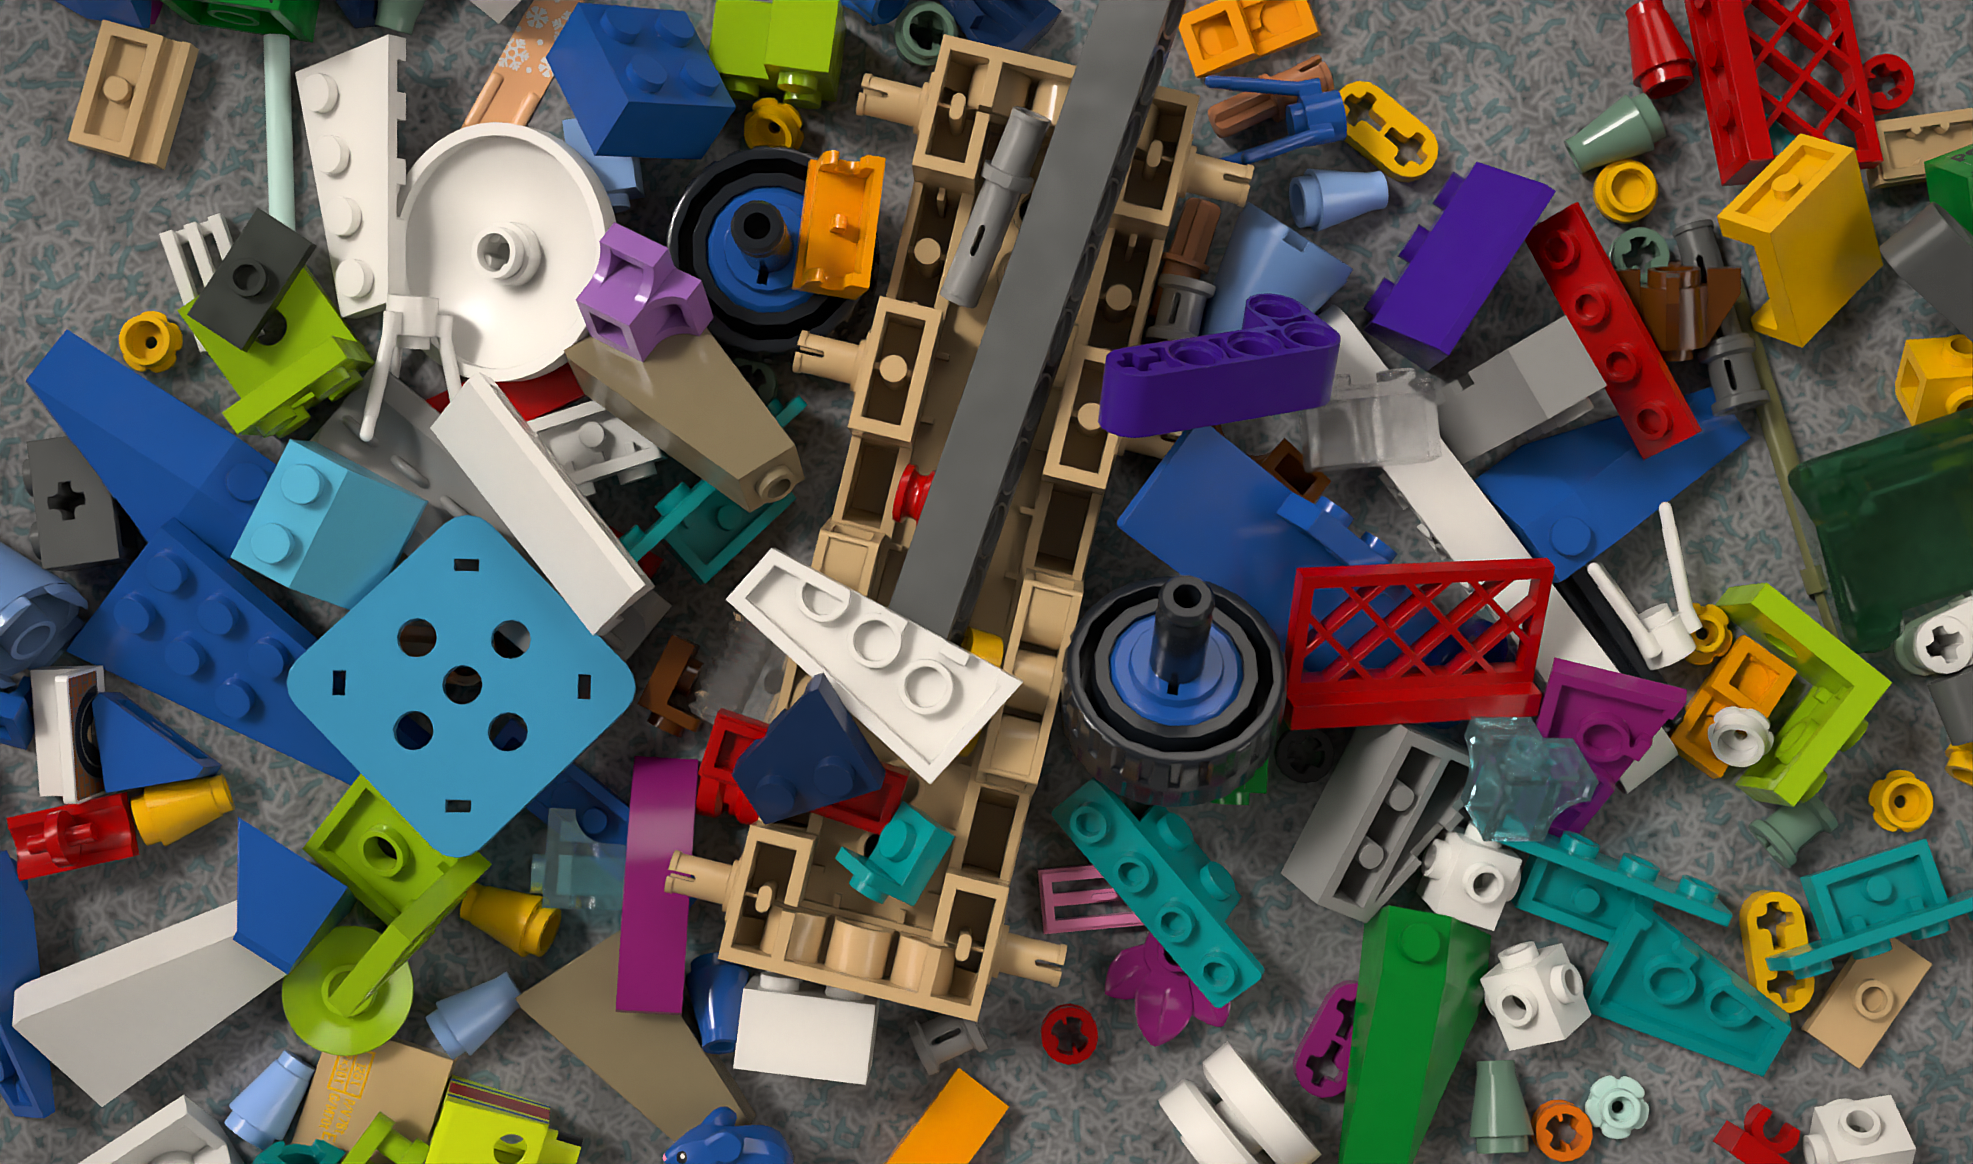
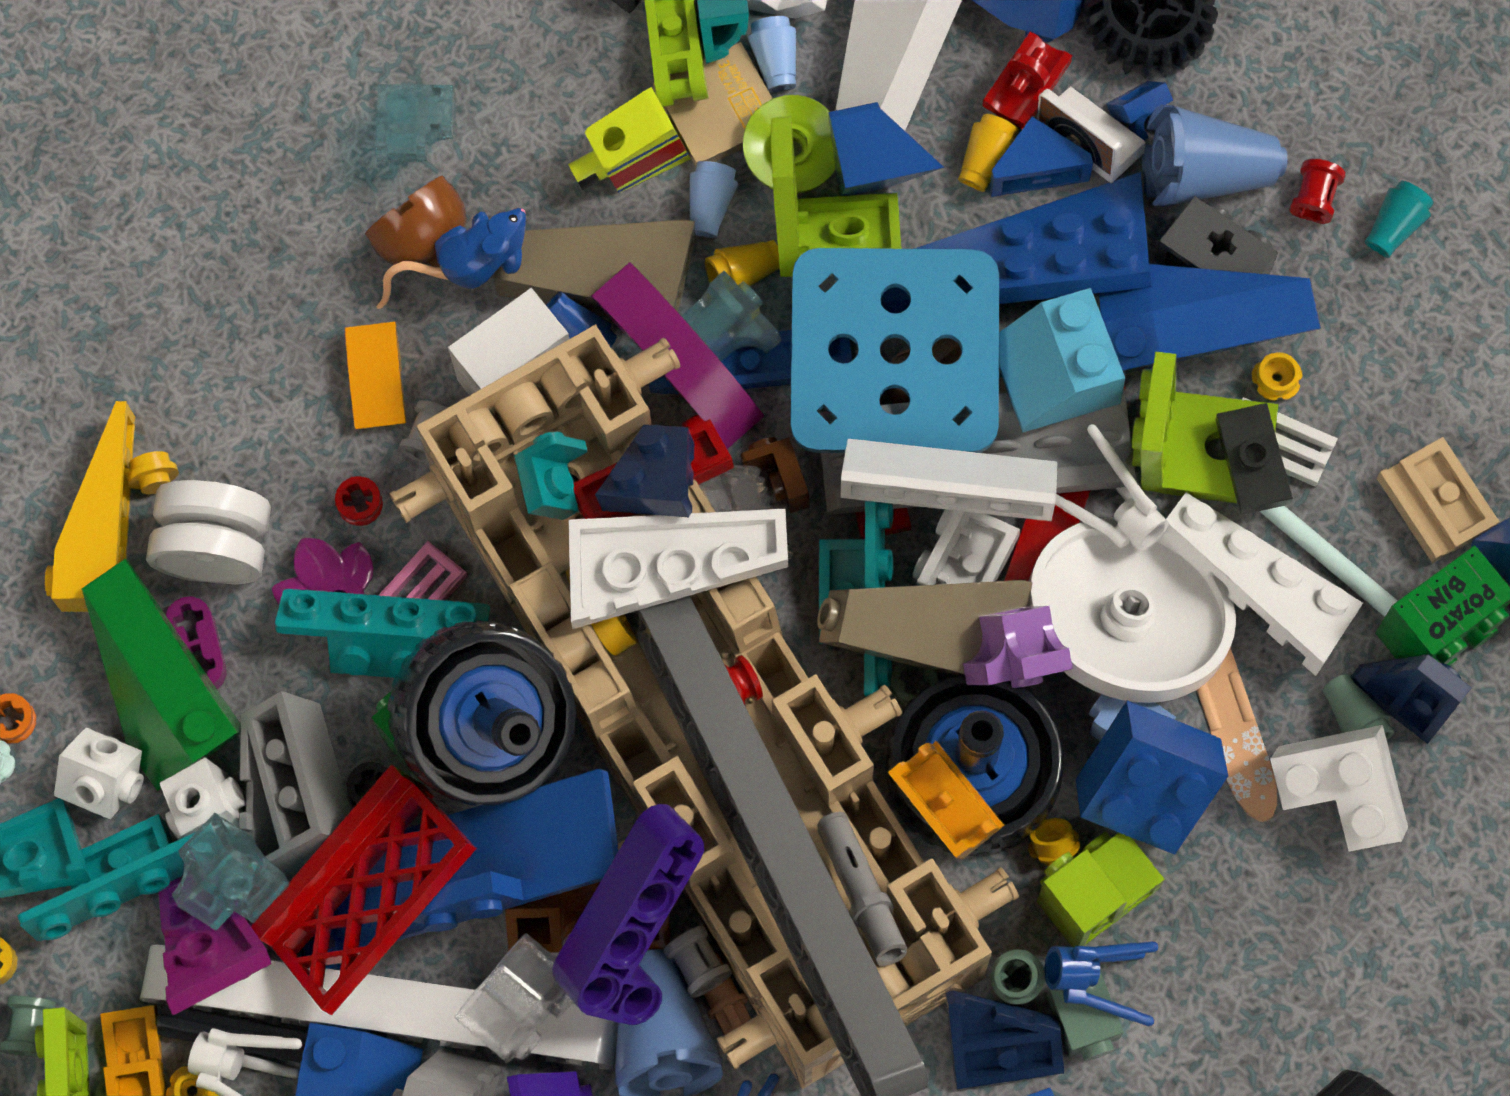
camera: 135 degrees right, 15 degrees down
(1499, 1110) = (58, 692): sand green cone -> none
(1737, 748) = (111, 1043): white plate -> none

